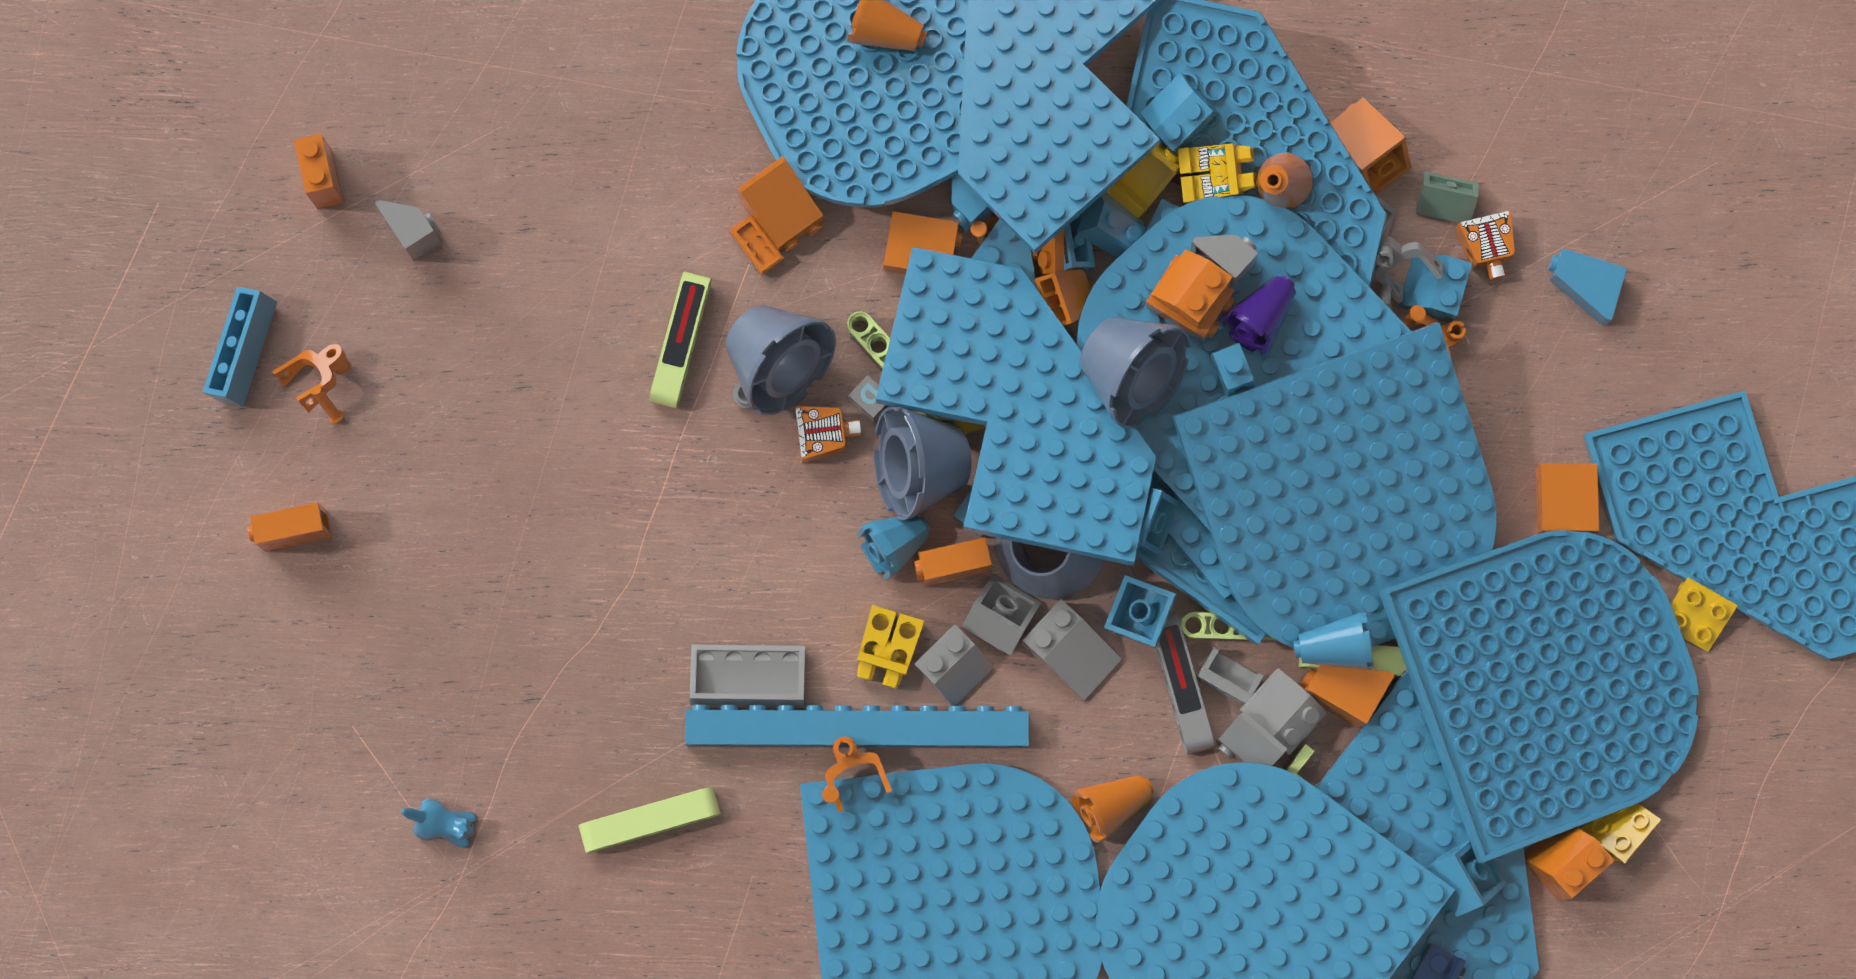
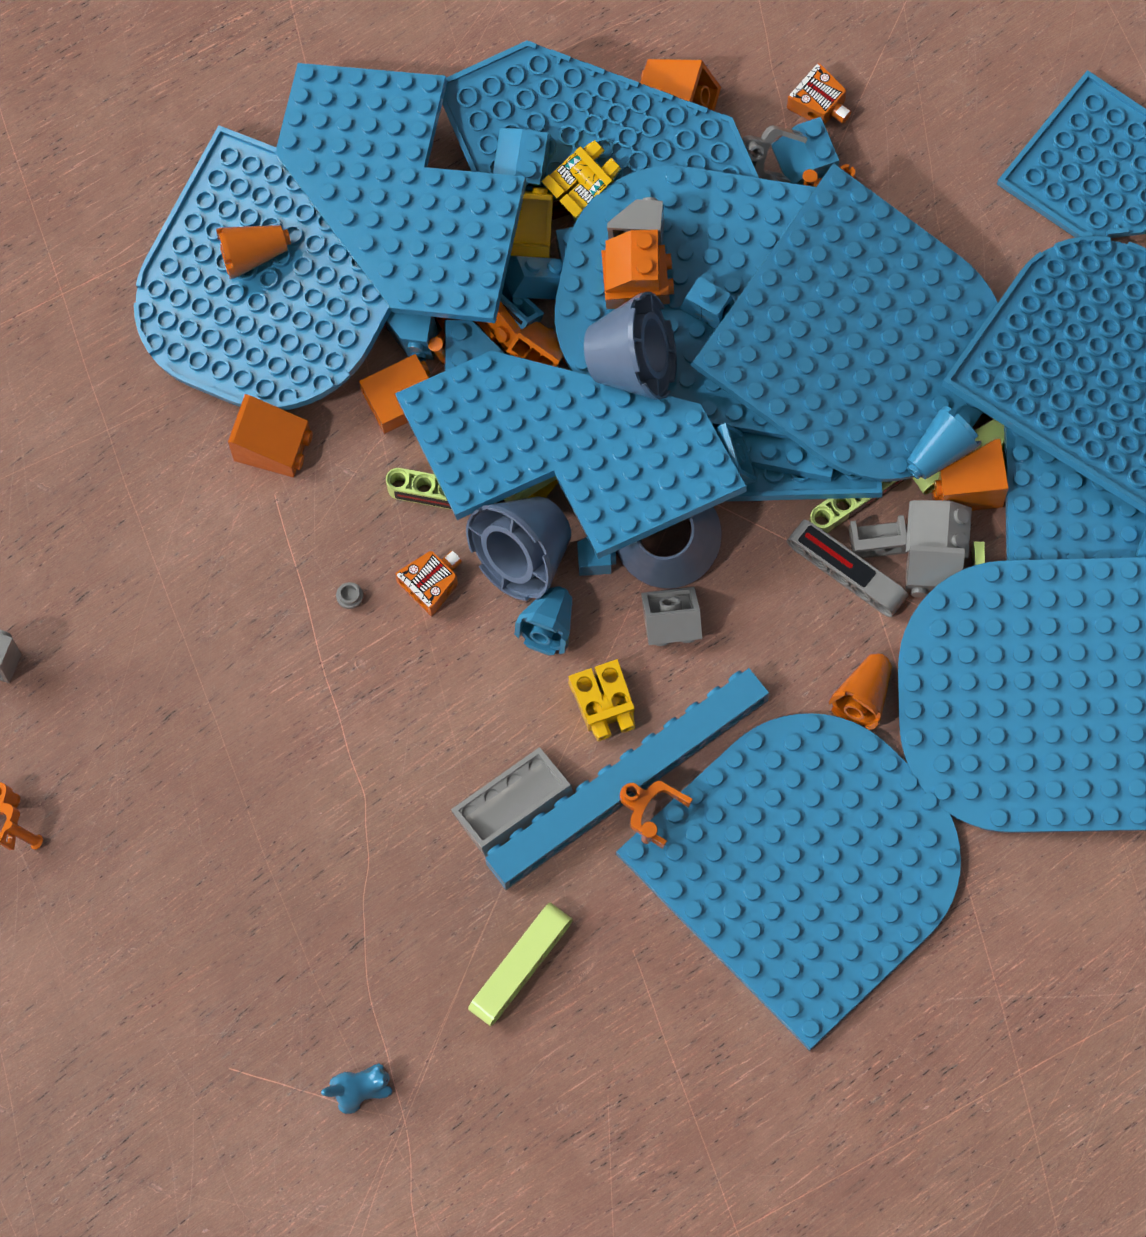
camera: 30 degrees left, 10 degrees down
(290, 527) = (64, 947): orange brick -> none
(680, 340) = (267, 591): beam -> none
(756, 245) = (272, 481): orange plate -> none
(778, 356) = (353, 542): sand blue cone -> none
(865, 399) = (447, 530): light grey brick -> none
(953, 562) = (606, 600): orange brick -> none
(953, 665) = (664, 678): light grey slope -> none
(1071, 650) = (744, 603): light grey slope -> none
(1140, 611) = (776, 534): dark azure slope -> none
(1260, 315) = (698, 250): dark purple cone -> none
(1293, 184) = (645, 155): orange cone -> none
(1447, 197) = (765, 88): sand green panel -> none
(1567, 498) = (1020, 232): orange brick -> none
(1588, 282) = (914, 75): dark azure slope -> none

